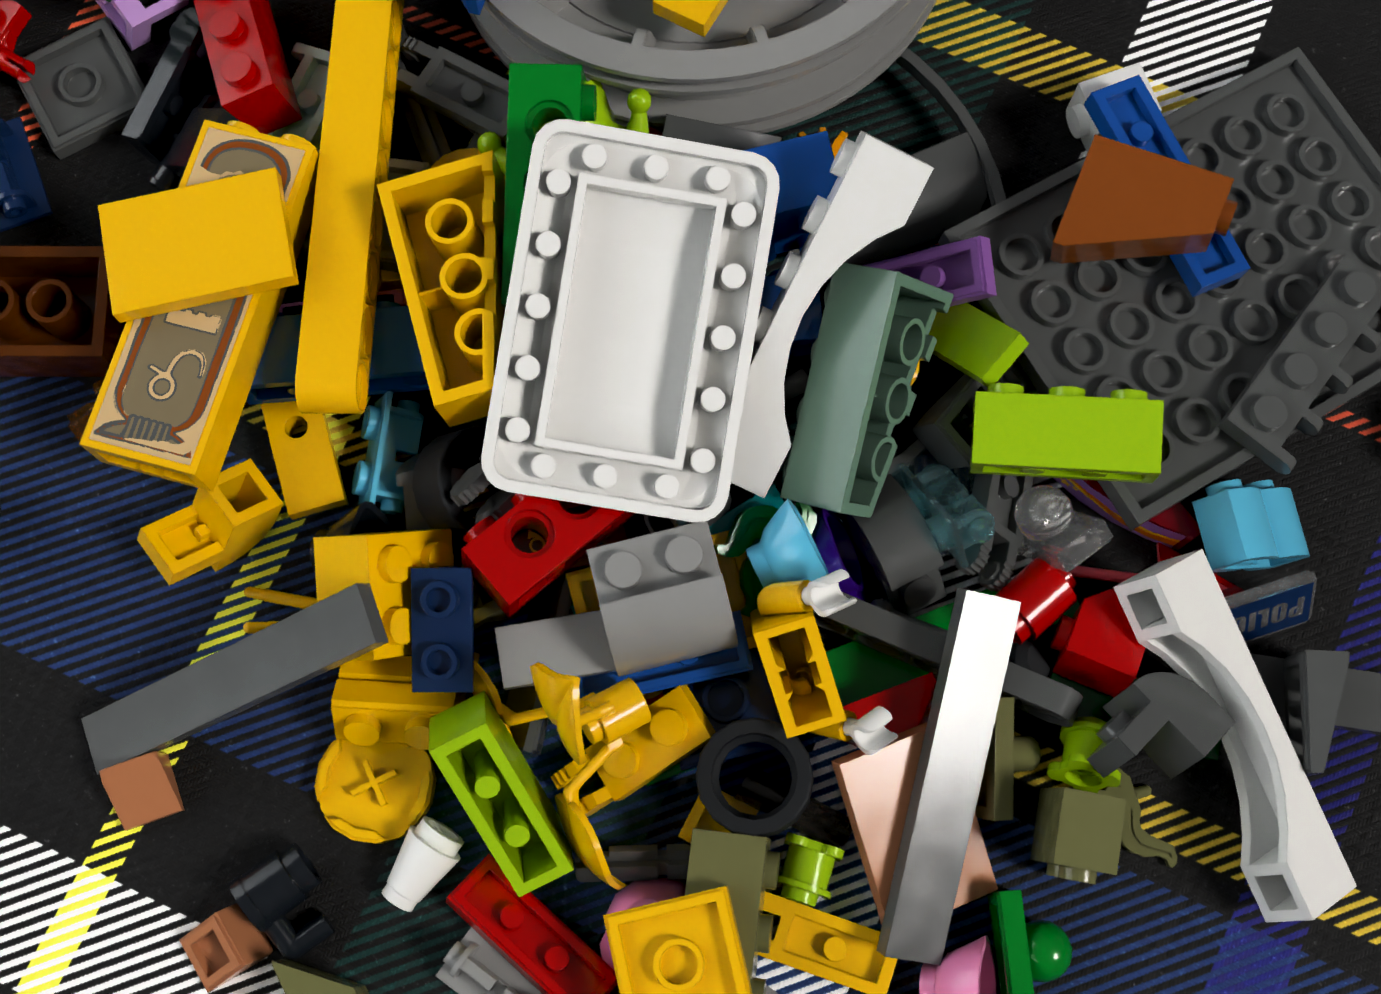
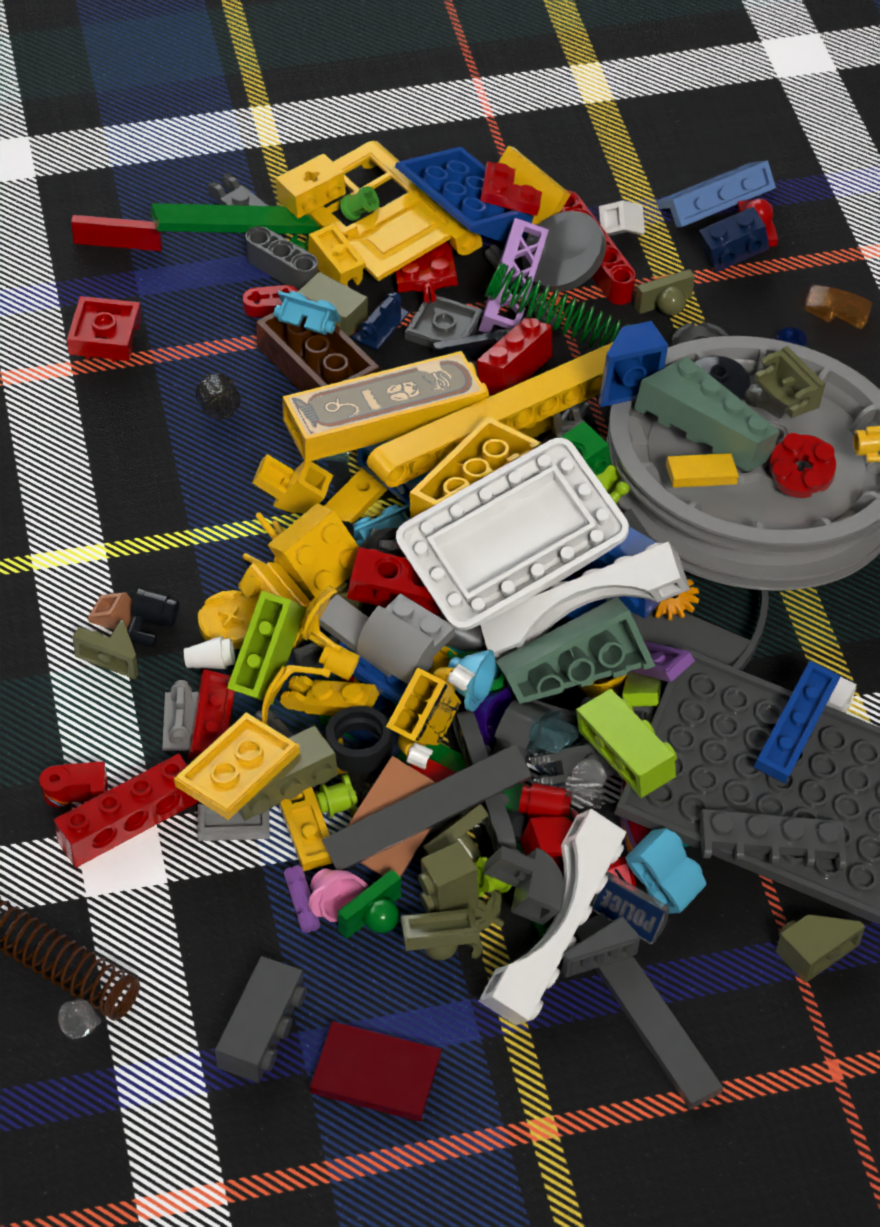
camera: 50 degrees right, 25 degrees down
(142, 789) = (155, 538): nougat slope -> none
(197, 245) = (403, 379): yellow tile -> none
(237, 677) = (231, 522): dark grey tile -> none
(442, 629) = (320, 570): dark blue hinge -> none
(1136, 897) = (440, 932): none -> olive tile
(1140, 206) = (764, 702): dark orange slope -> none

